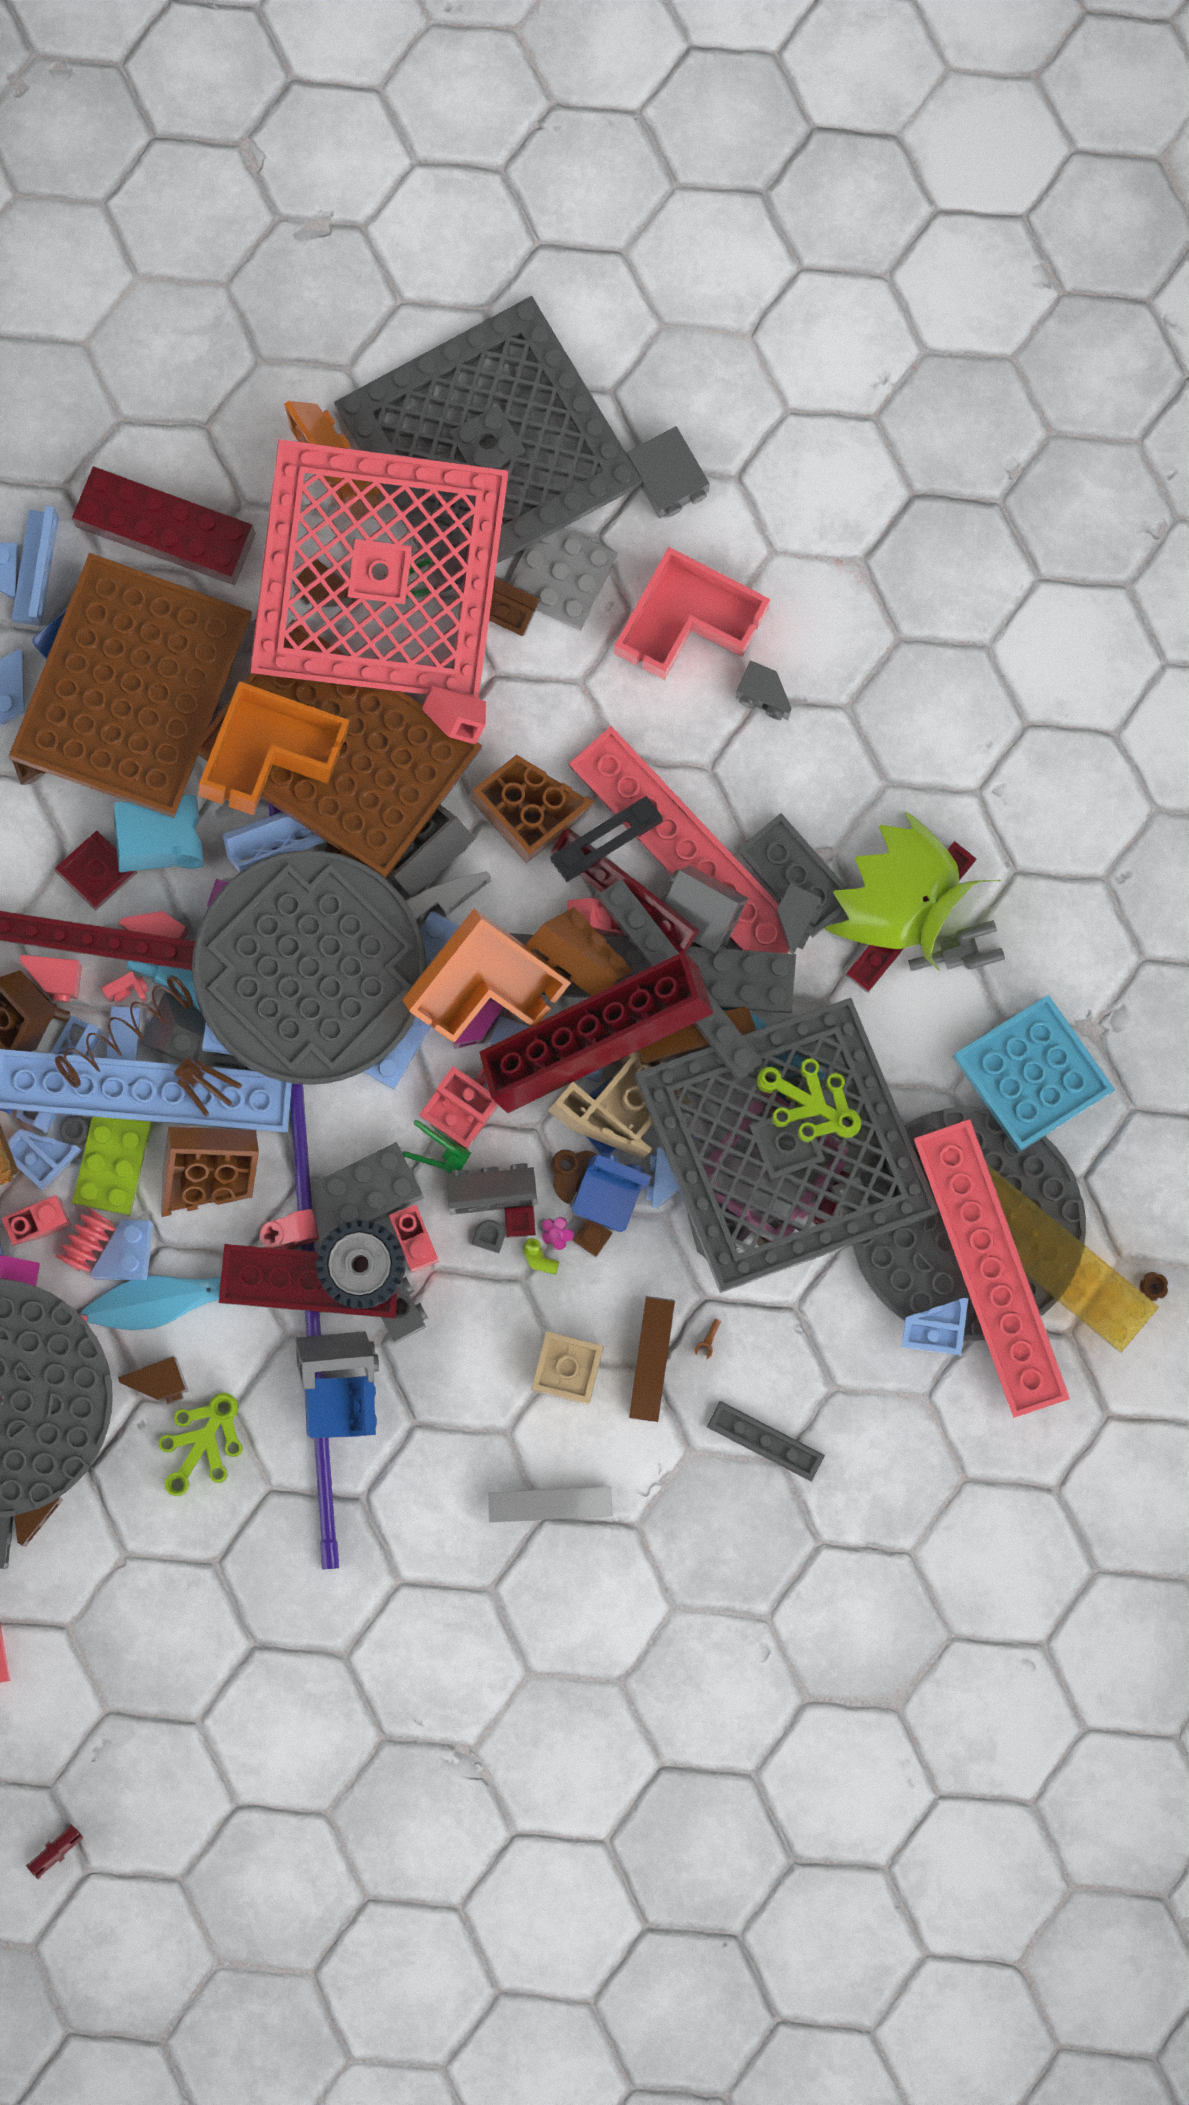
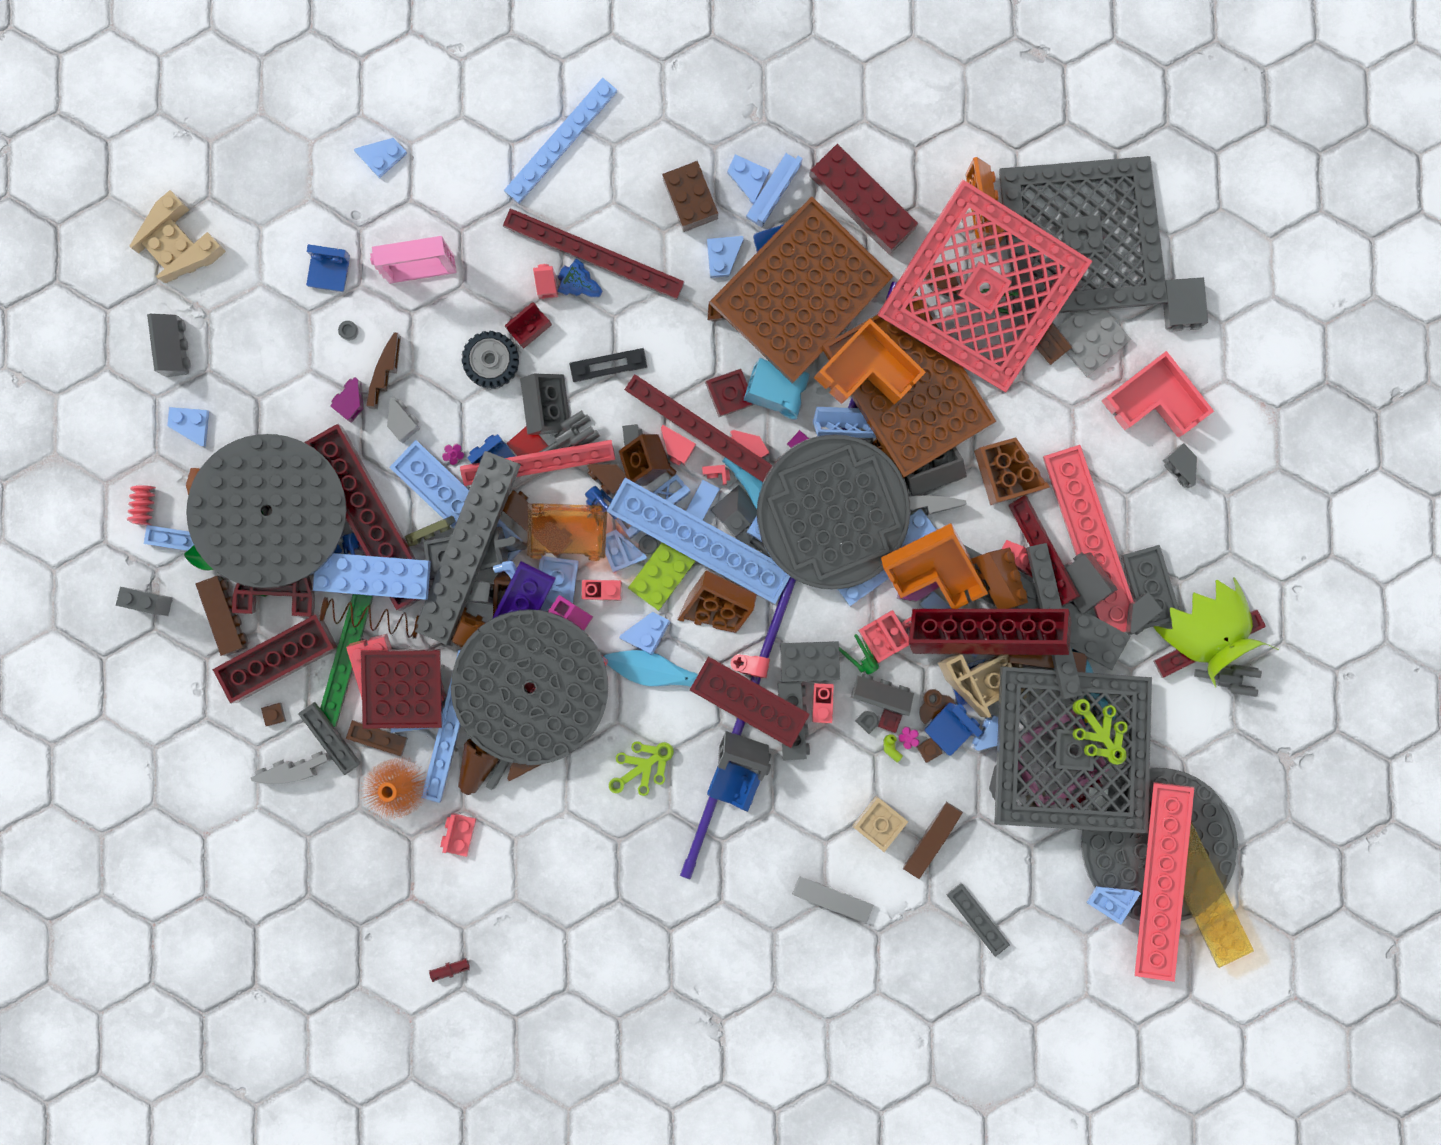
camera: 25 degrees right, 5 degrees up
(72, 1076) = (663, 517): reddish brown piece -> none
(86, 1241) = (626, 615): coral piece -> none
(159, 1381) = (632, 719): reddish brown slope -> none
(190, 1073) = (734, 544): reddish brown plant -> none
(337, 1260) = (801, 707): wheel -> none
(456, 714) = (989, 395): coral slope -> none
(571, 860) = (1020, 516): black container -> none
(709, 1338) = (972, 842): dark orange hand -> none
(1033, 1073) = (1241, 773): medium azure plate -> none
(1154, 1278) = (1259, 933): reddish brown plate -> none

